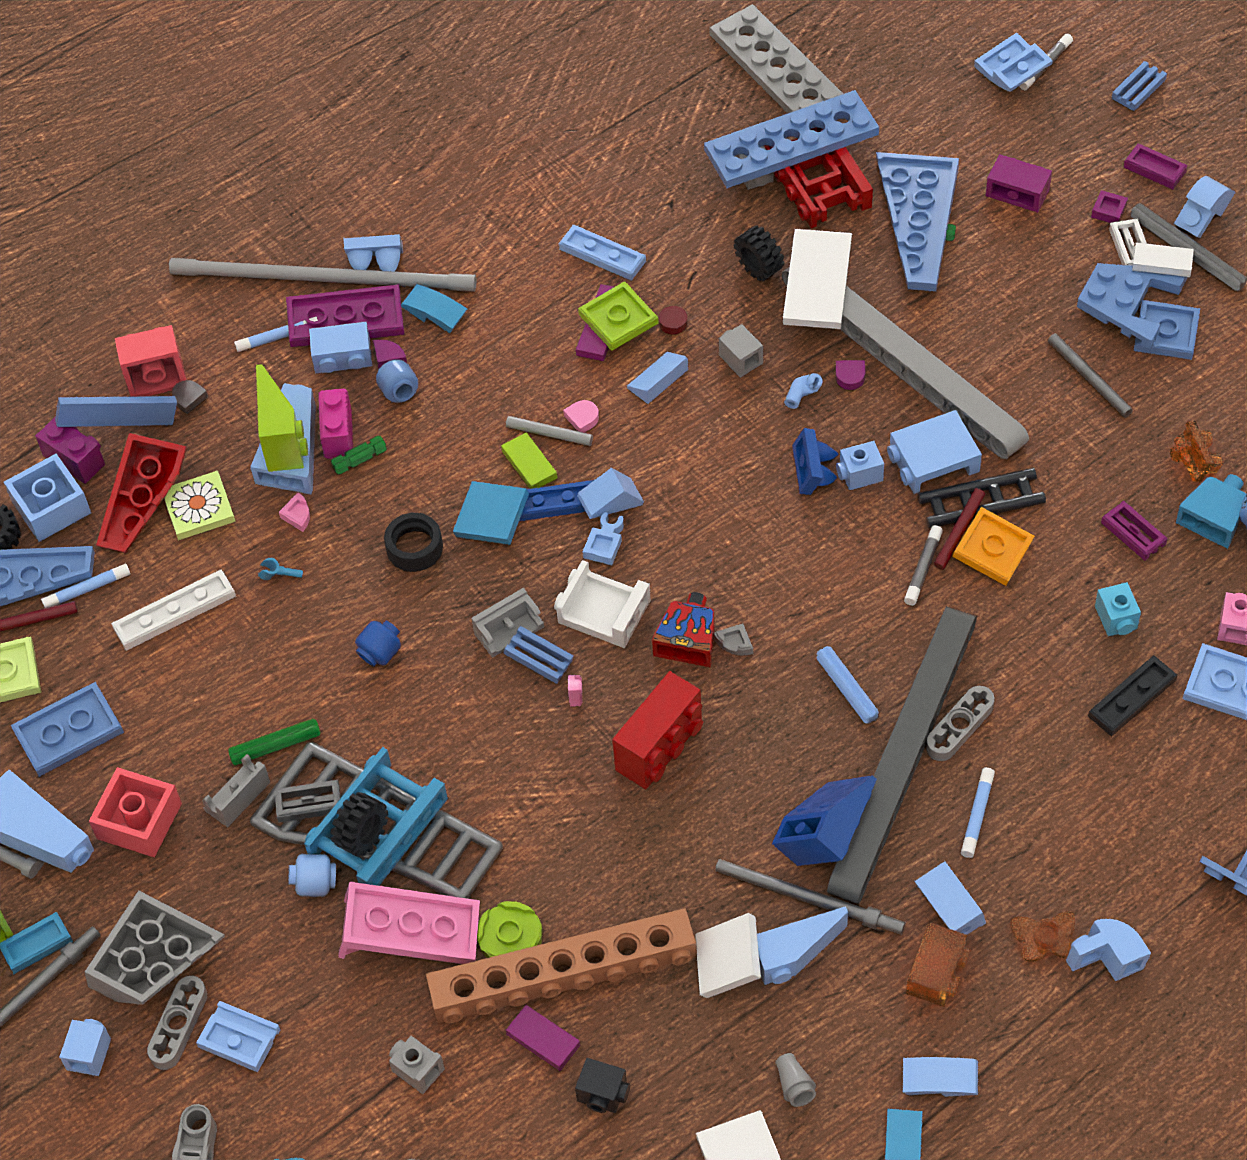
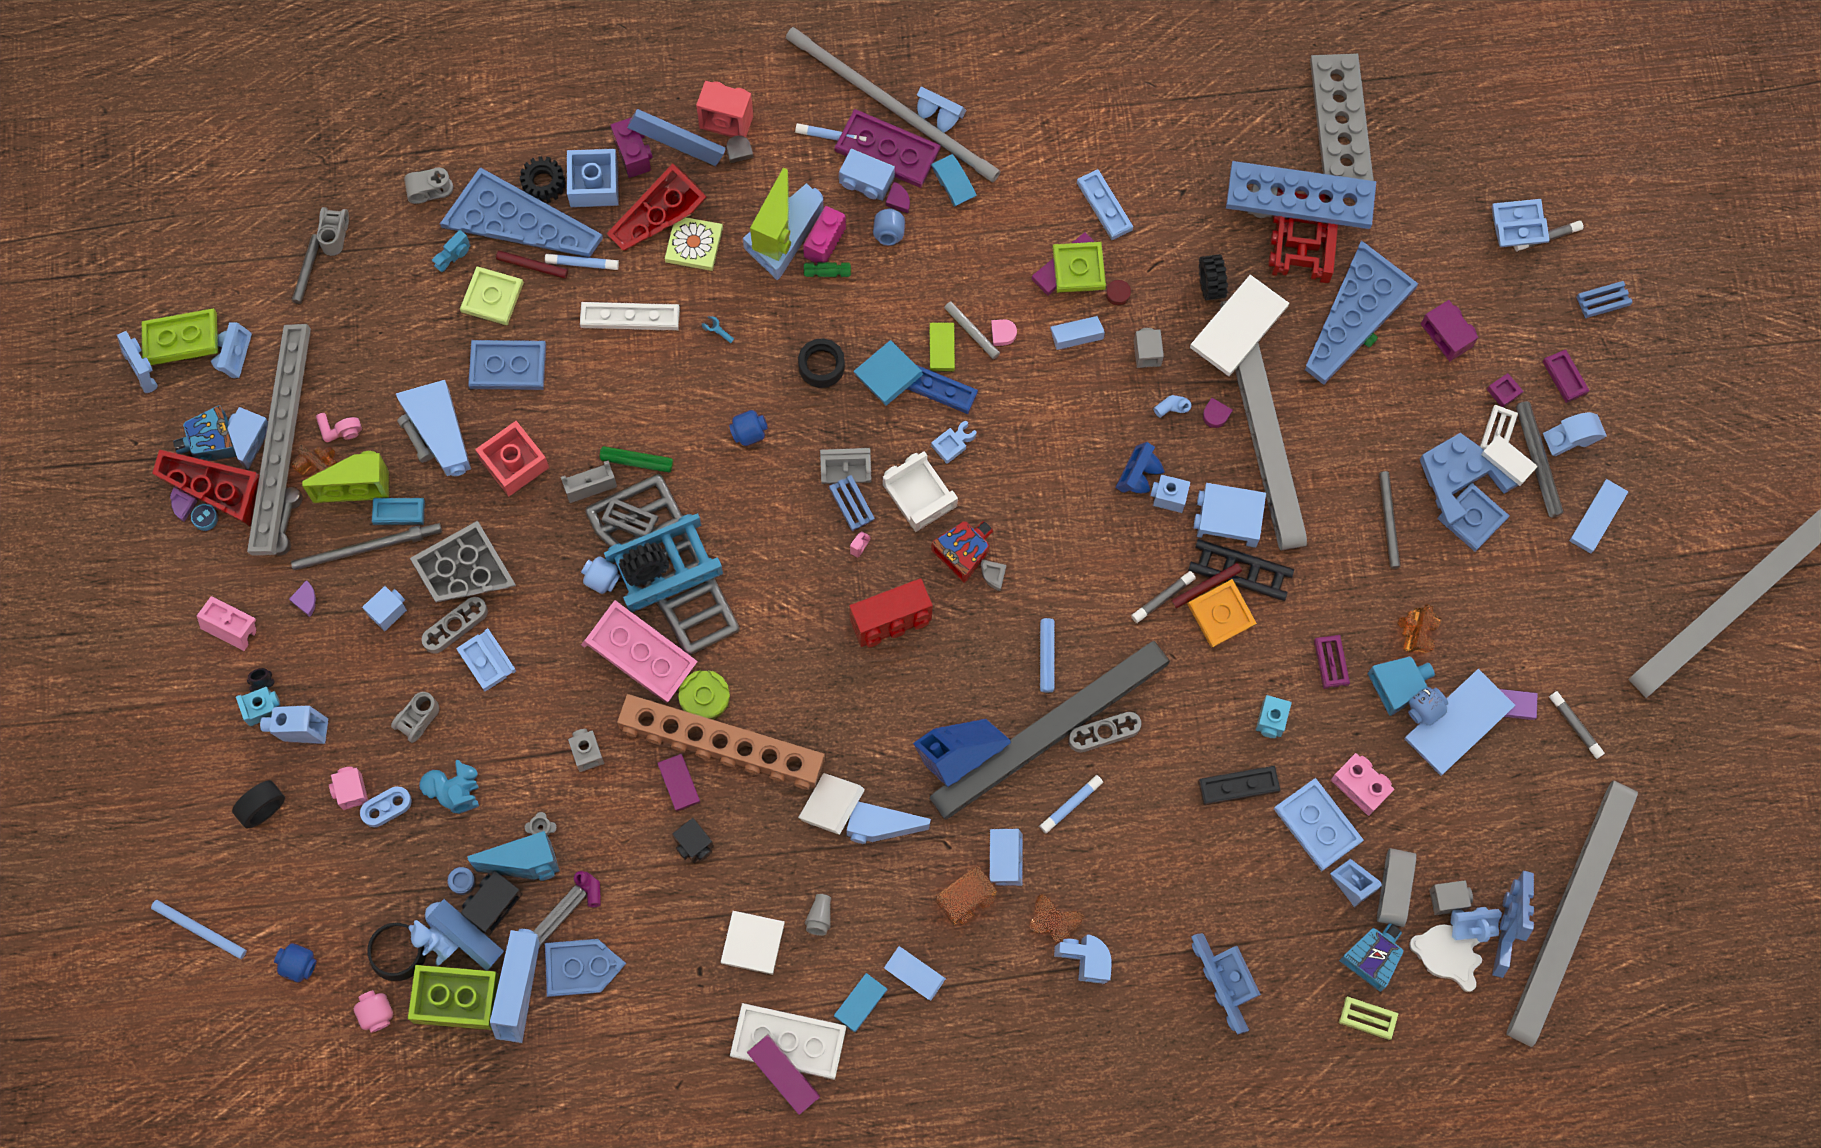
camera: 25 degrees right, 15 degrees up
(296, 512) = (757, 289): bright pink tile -> none
(609, 494) = (979, 409): light blue slope -> none
(870, 917) = (946, 833): flat silver bar -> none

